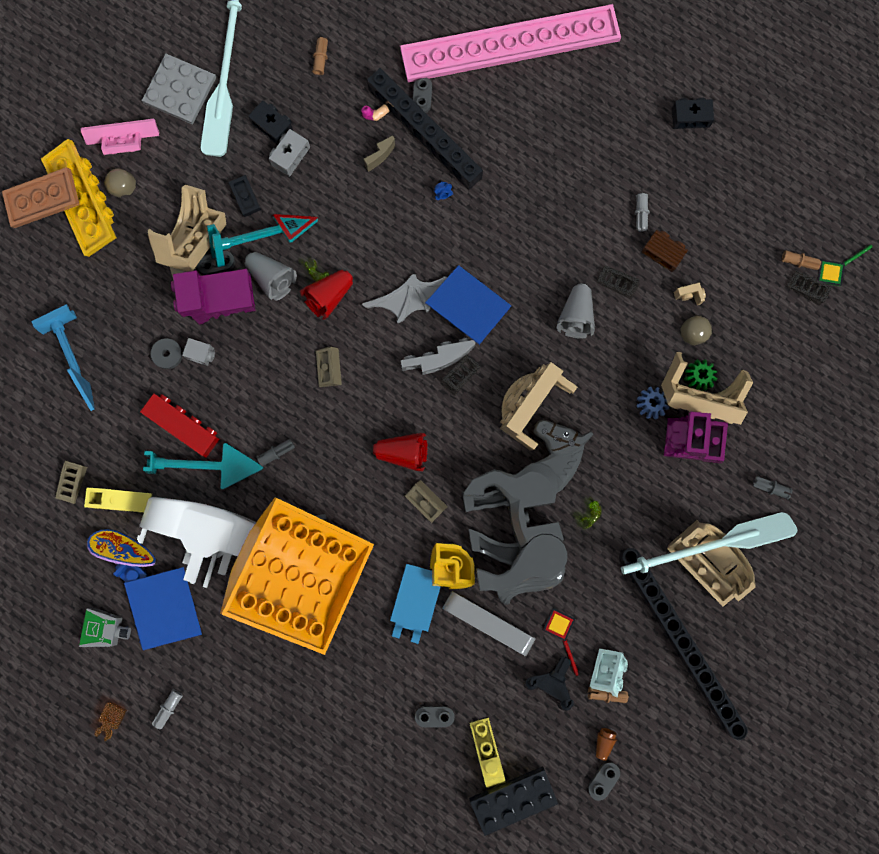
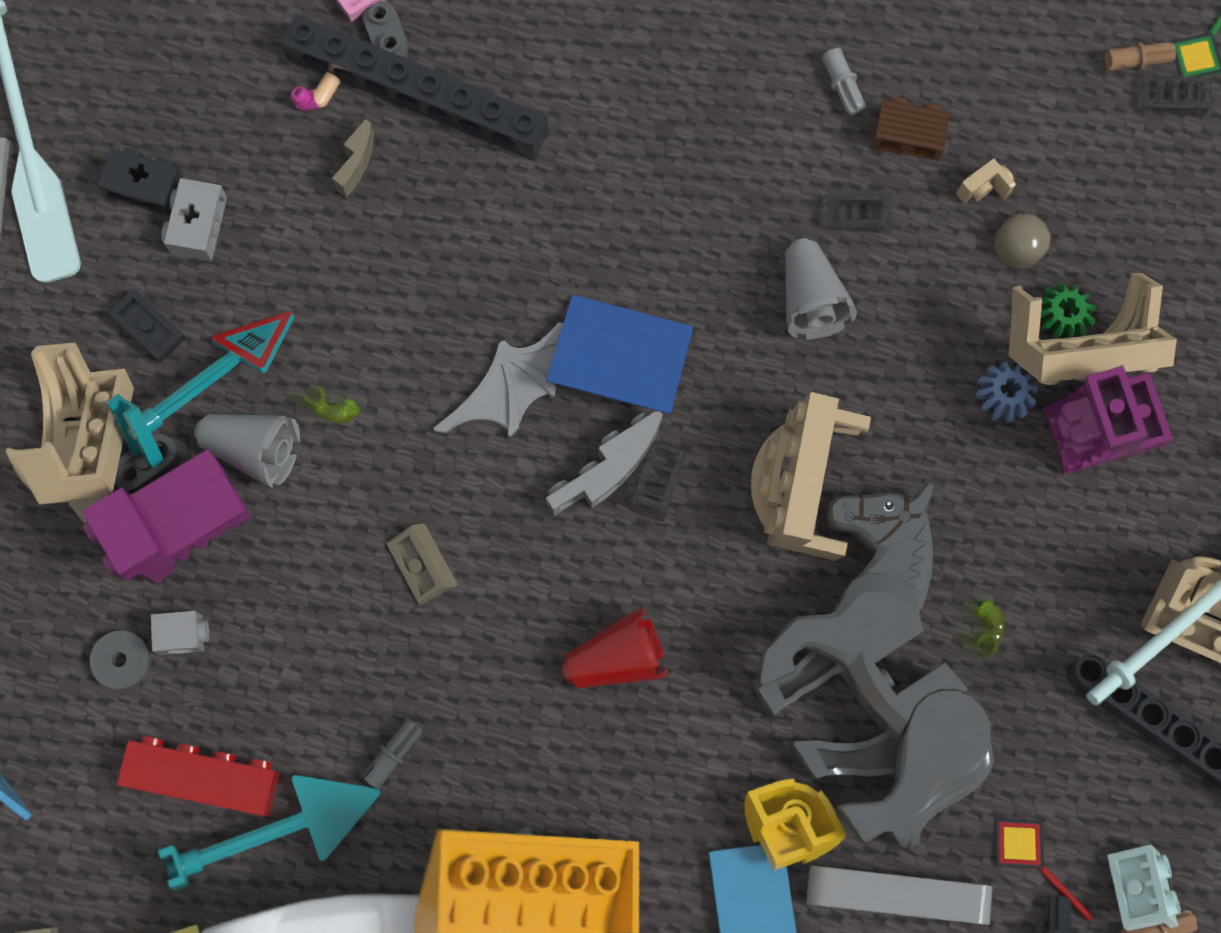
camera: 25 degrees left, 5 degrees down
(320, 56) = (180, 35): medium nougat axle -> none
(327, 293) = (365, 435): red cone -> none
(426, 501) = (694, 727): dark tan slope -> none
(443, 190) = (491, 178): blue plate -> none

